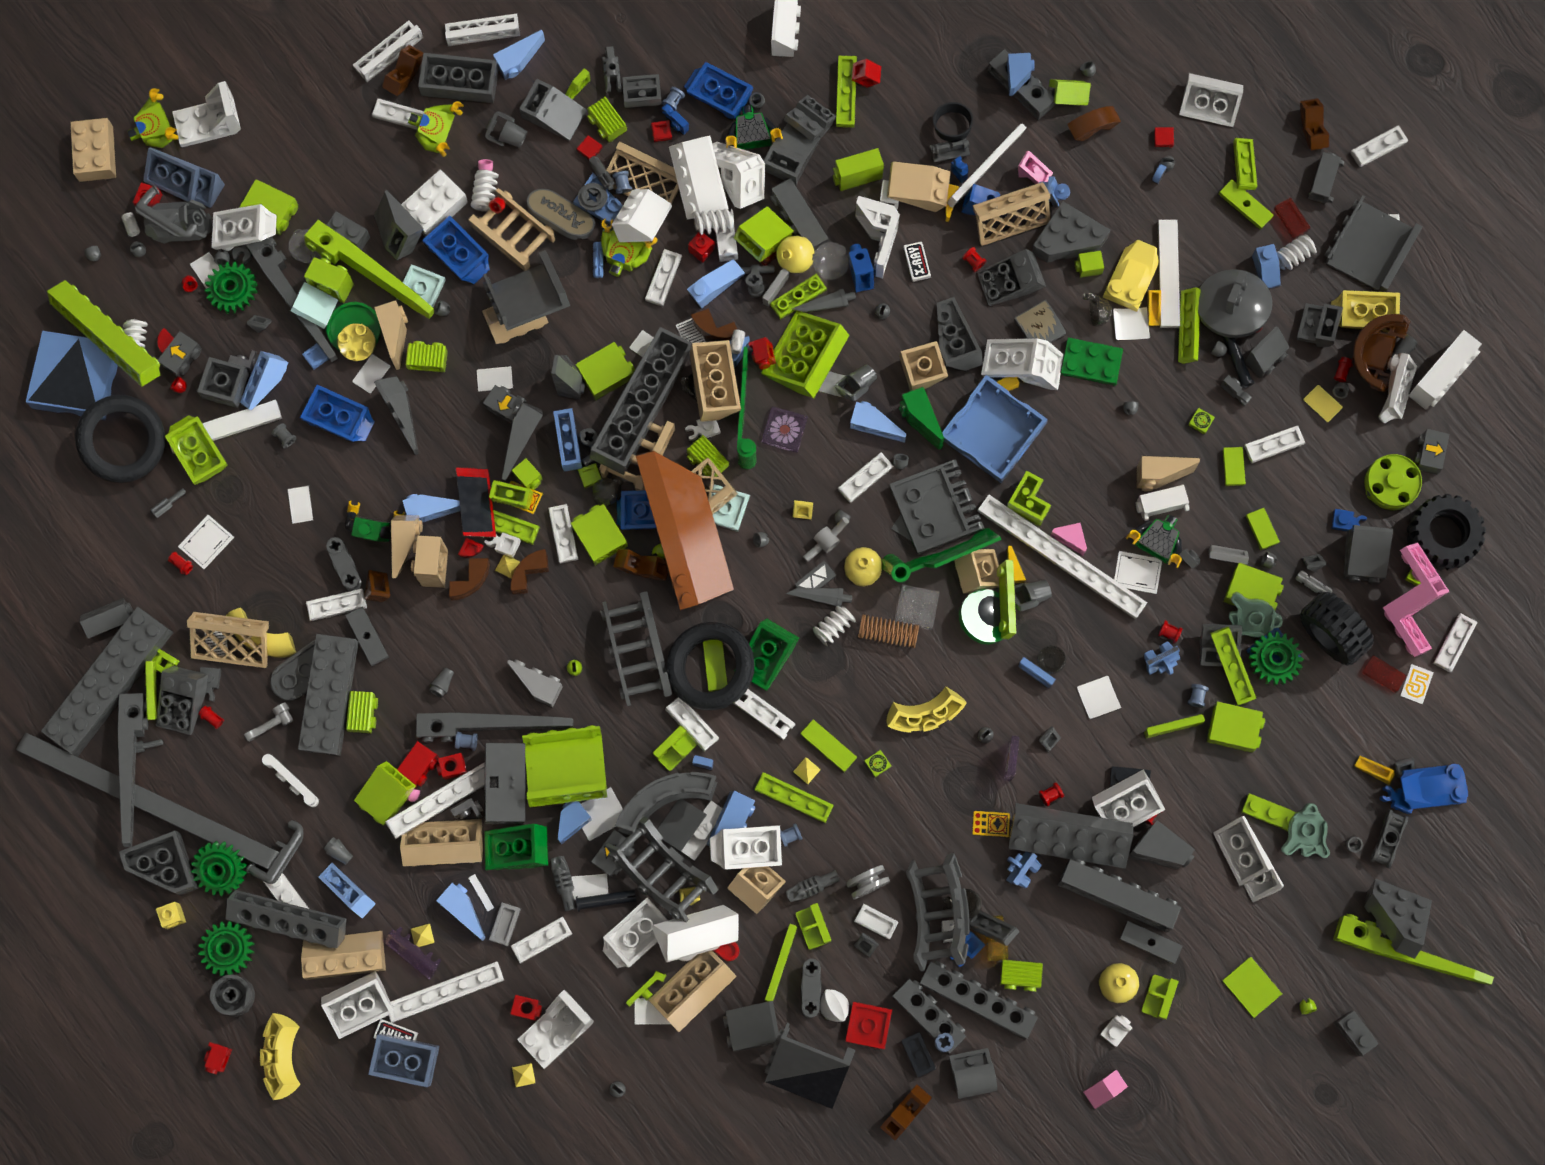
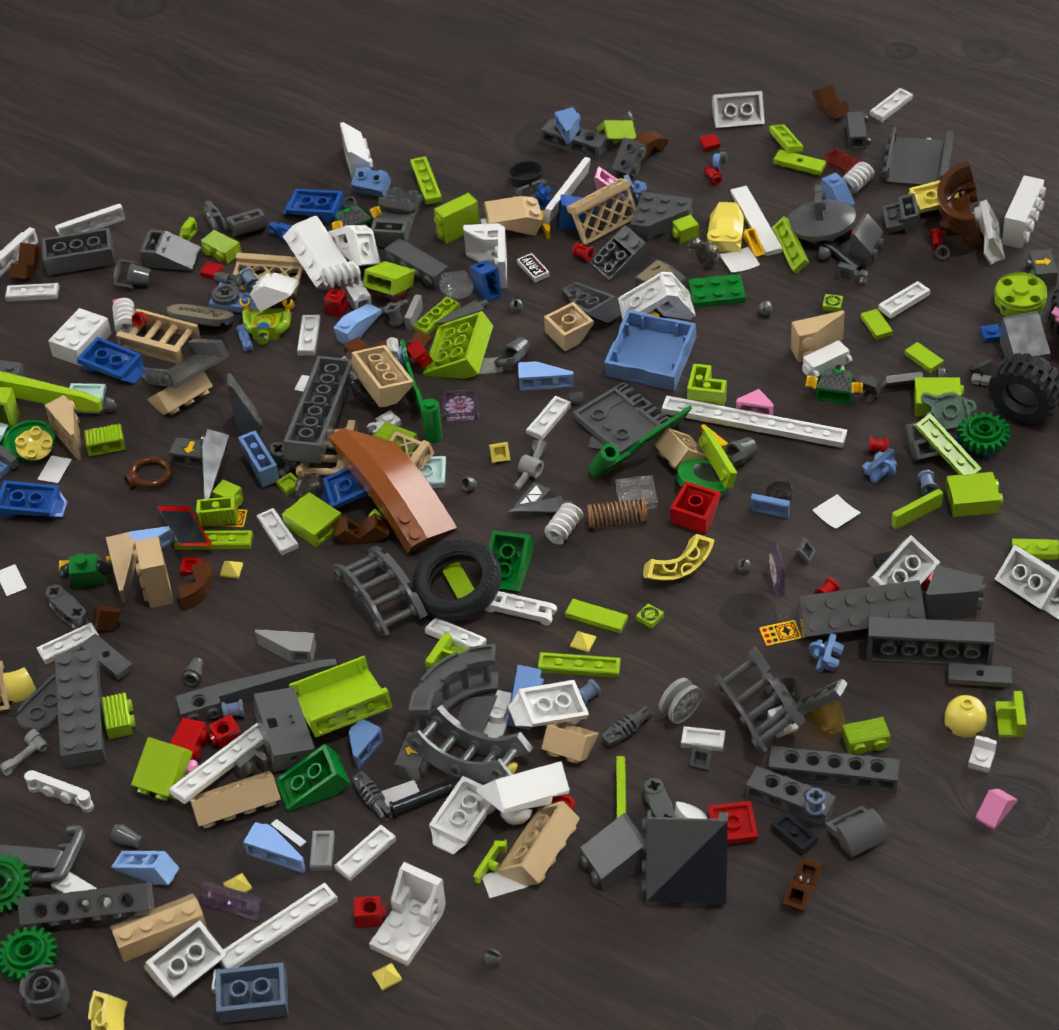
camera: 15 degrees left, 30 degrees down
(396, 399) = (85, 478): dark grey wedge -> none
(397, 227) = (50, 356): dark grey slope -> none
(435, 126) = (65, 285): lime torso -> none
(442, 419) = (132, 478): none -> reddish brown piece
(494, 376) = (166, 443): white sticker -> none
(504, 544) = (223, 552): white plate -> none
(516, 57) = (127, 227): light blue slope -> none
(533, 563) = (253, 559): reddish brown brick -> none
(578, 668) = (322, 630): lime hinge -> none
(603, 814) = (394, 731): white sticker -> none
(605, 370) = (277, 405): lime brick -> none
(661, 131) = (272, 244): red tile -> none
(674, 97) = (274, 217): sand blue bush -> none
(771, 326) = (423, 338): none -> reddish brown tile
(787, 78) = (371, 182): none -> medium blue brick
(795, 254) = (422, 282): light yellow cylinder -> none
(813, 926) = (643, 758): lime panel -> none
(863, 566) = (573, 476): light yellow cylinder -> none
(866, 73) = (438, 162): red brick -> none
(920, 415) = (583, 357): green slope -> none
(964, 653) = (695, 507): none -> red slope
(975, 945) = (804, 732): blue plate -> none
(1067, 141) = (629, 157): none -> dark grey brick
(1138, 572) = (829, 415): white sticker -> none
(1148, 191) = (715, 177): none -> red pin
(1323, 403) = (931, 266): light yellow sticker -> none

